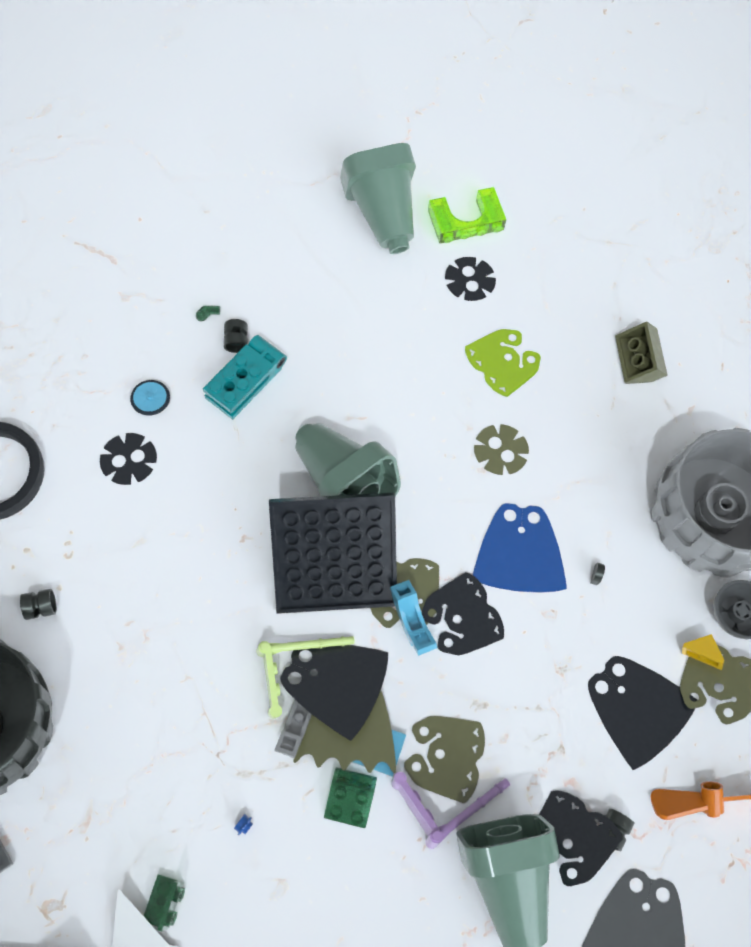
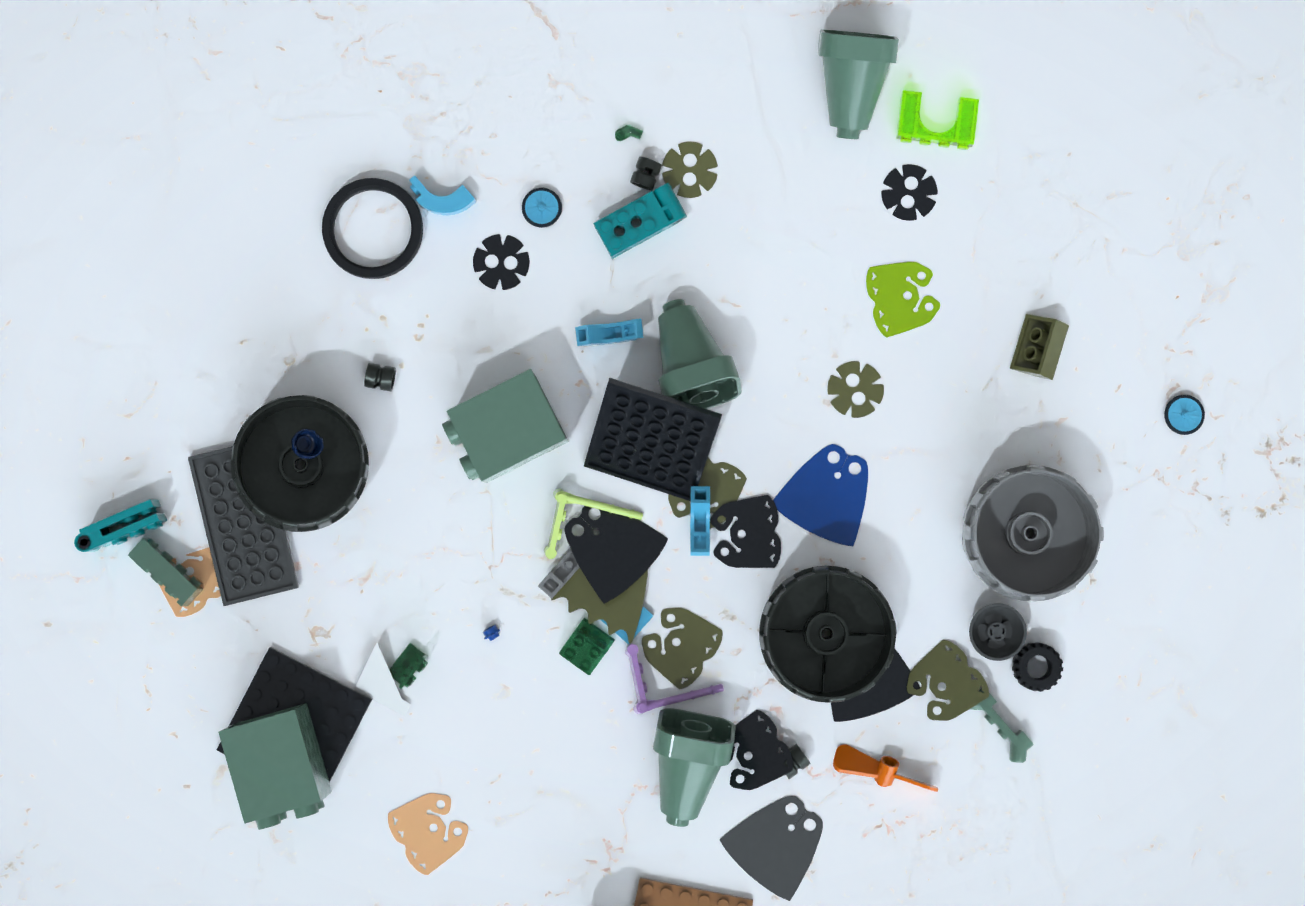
camera: 30 degrees right, 20 degrees up
(55, 426) = (442, 205): none -> medium azure arch
(181, 597) = (504, 427): none -> sand green brick
(255, 481) = (609, 333): none -> medium azure arch
(284, 314) = (703, 177): none -> olive piece
(598, 573) = (886, 545): pearl dark grey tile -> none
(625, 668) = (859, 642): none -> pearl dark grey wheel
(704, 650) = (946, 651): yellow slope -> none

